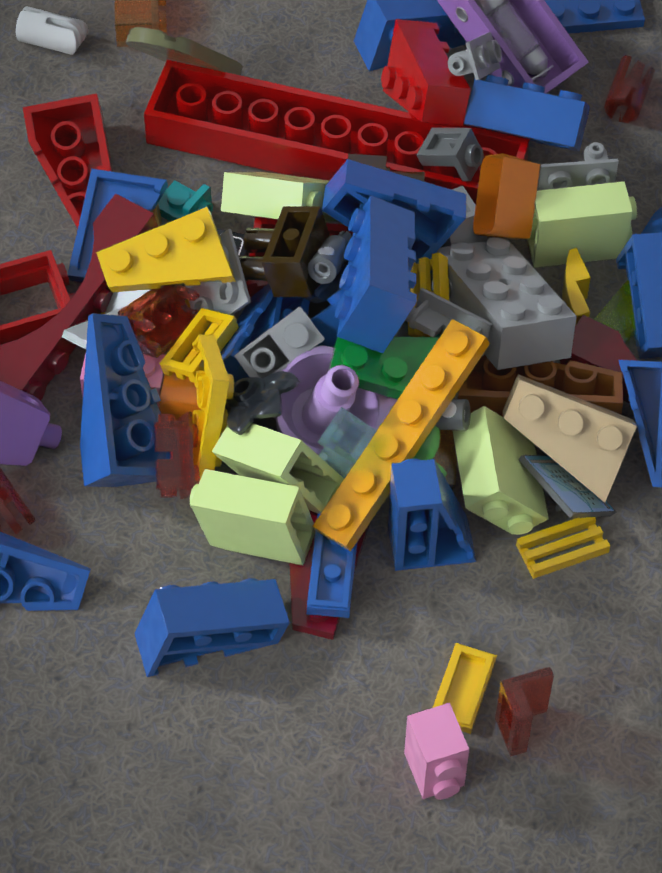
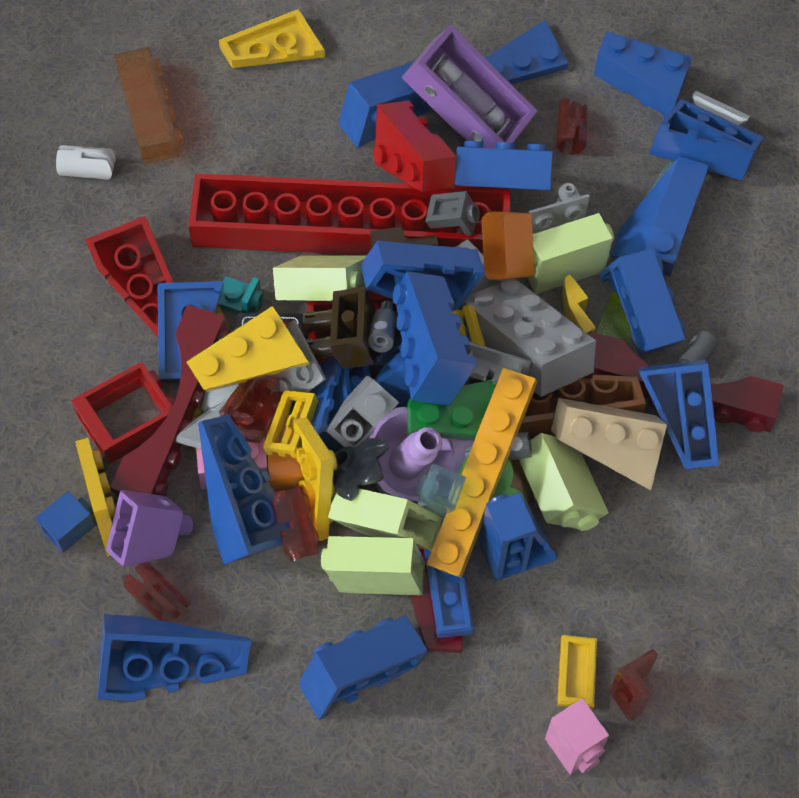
camera: 15 degrees left, 5 degrees up
(180, 49) = (194, 165): olive tile -> none
(479, 58) = (454, 128): light grey hinge -> none
(540, 537) = (645, 515): yellow tile -> none
(565, 489) = (616, 485): piece -> none

